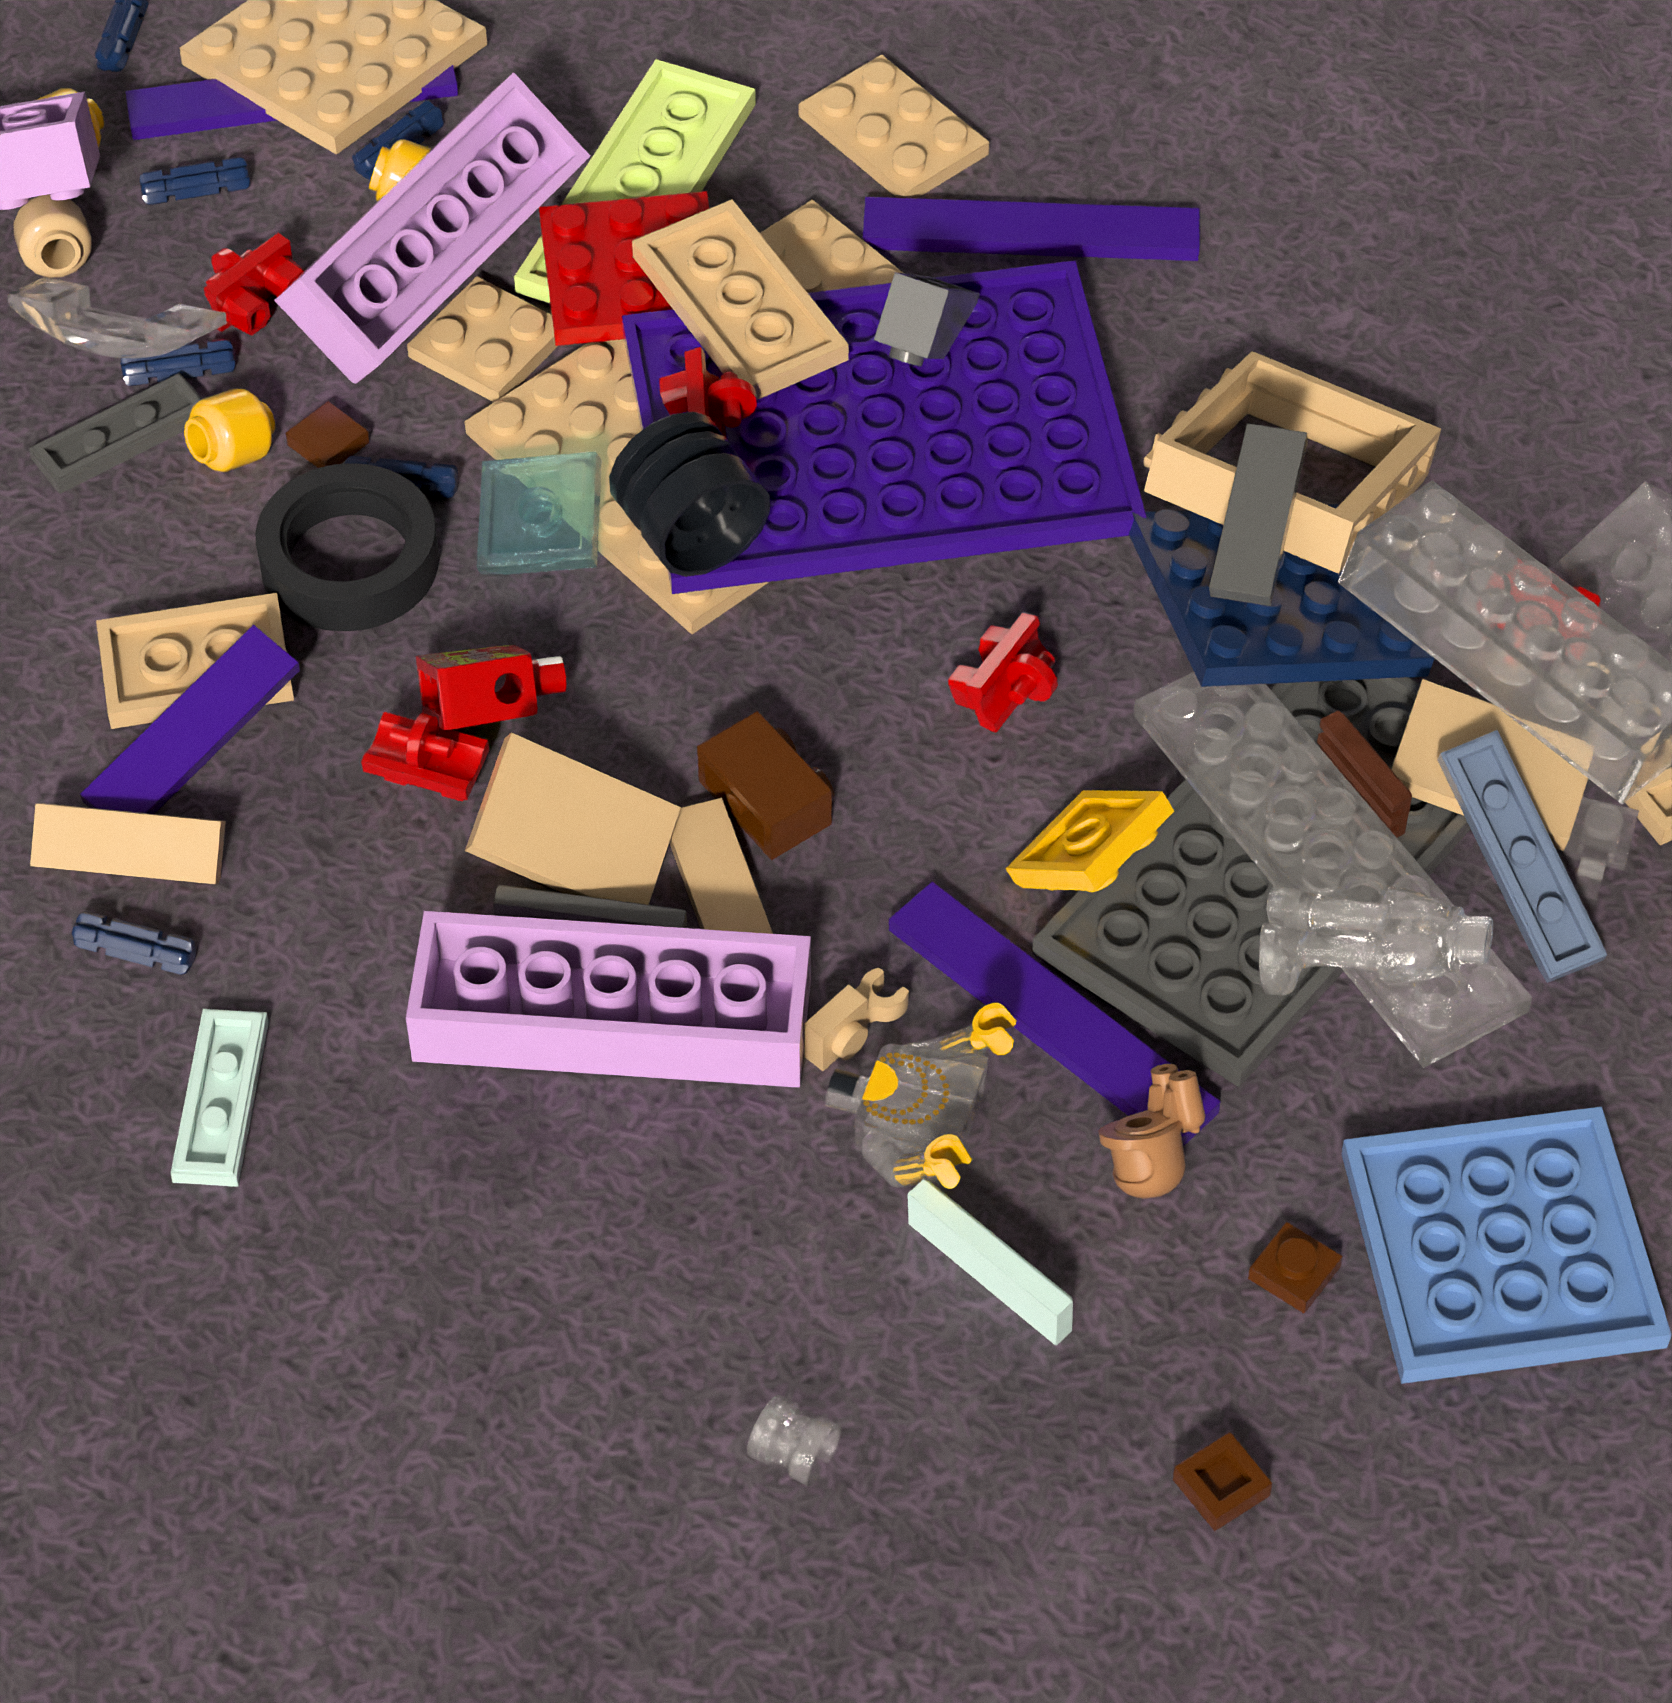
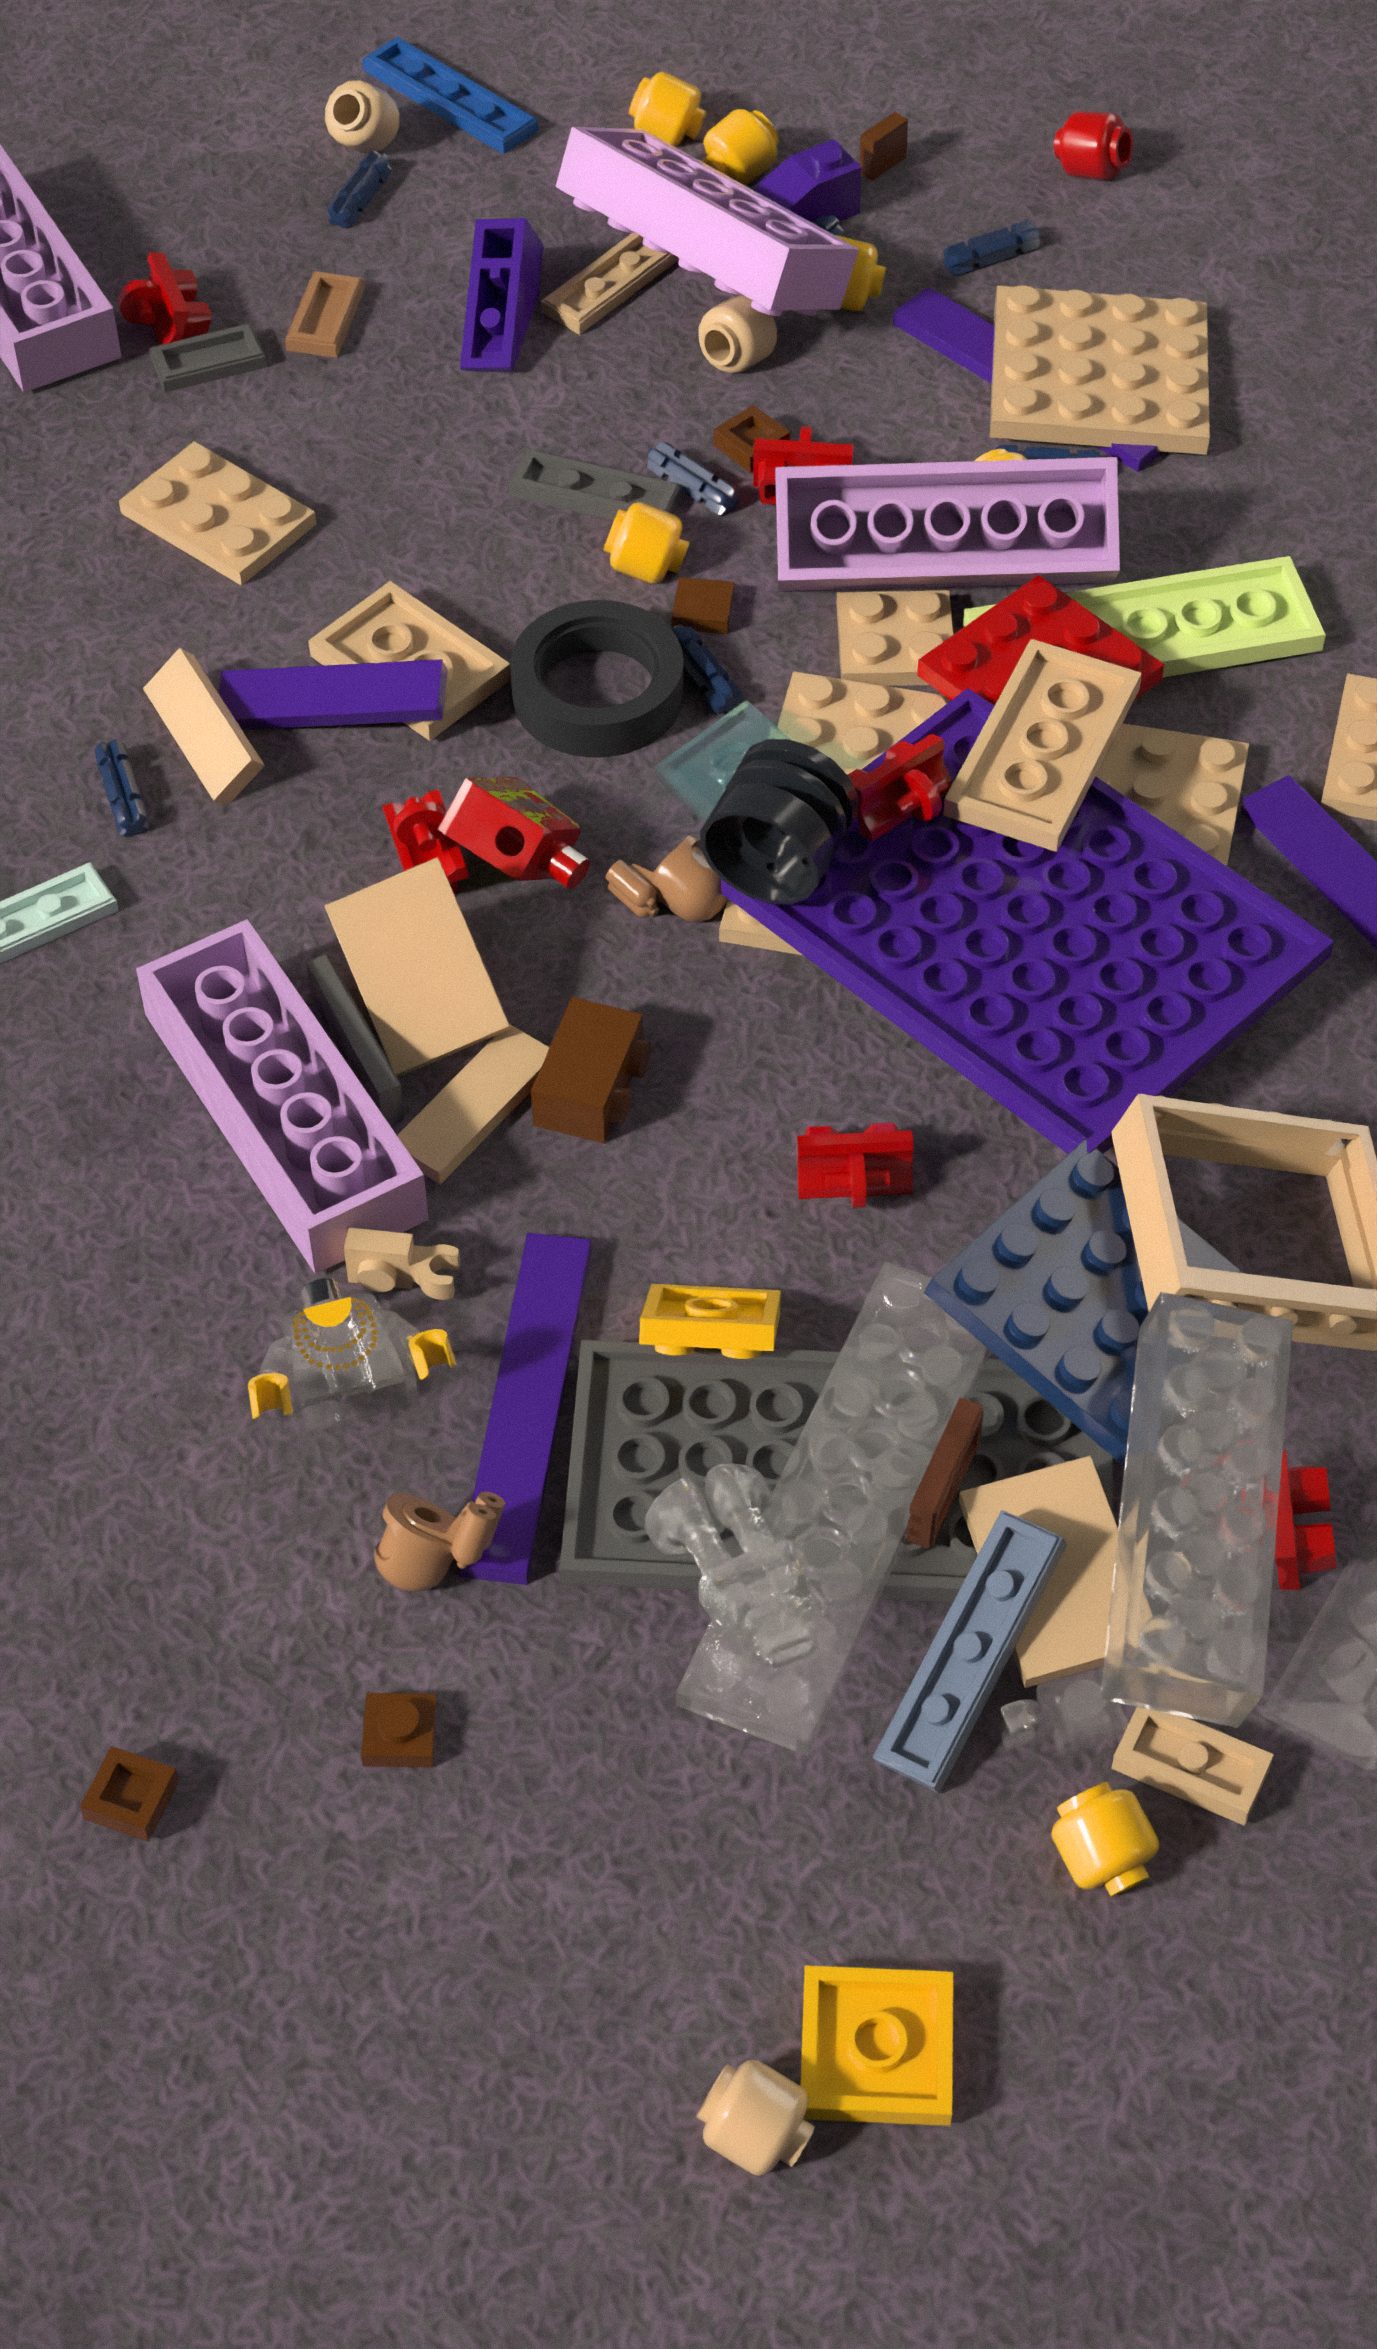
camera: 55 degrees right, 0 degrees up
(66, 314) = (674, 409): clear slope -> none
(175, 288) = (738, 435): none -> reddish brown plate
(194, 180) = (882, 378): dark blue axle -> none
(626, 616) = (680, 883): none -> medium nougat piece
(923, 317) = (1145, 866): slope -> none
(990, 1261) = (225, 1501): light aqua tile -> none
(1258, 514) = (1122, 1211): dark grey tile -> none
(1504, 1245) = (541, 1880): medium blue plate -> none

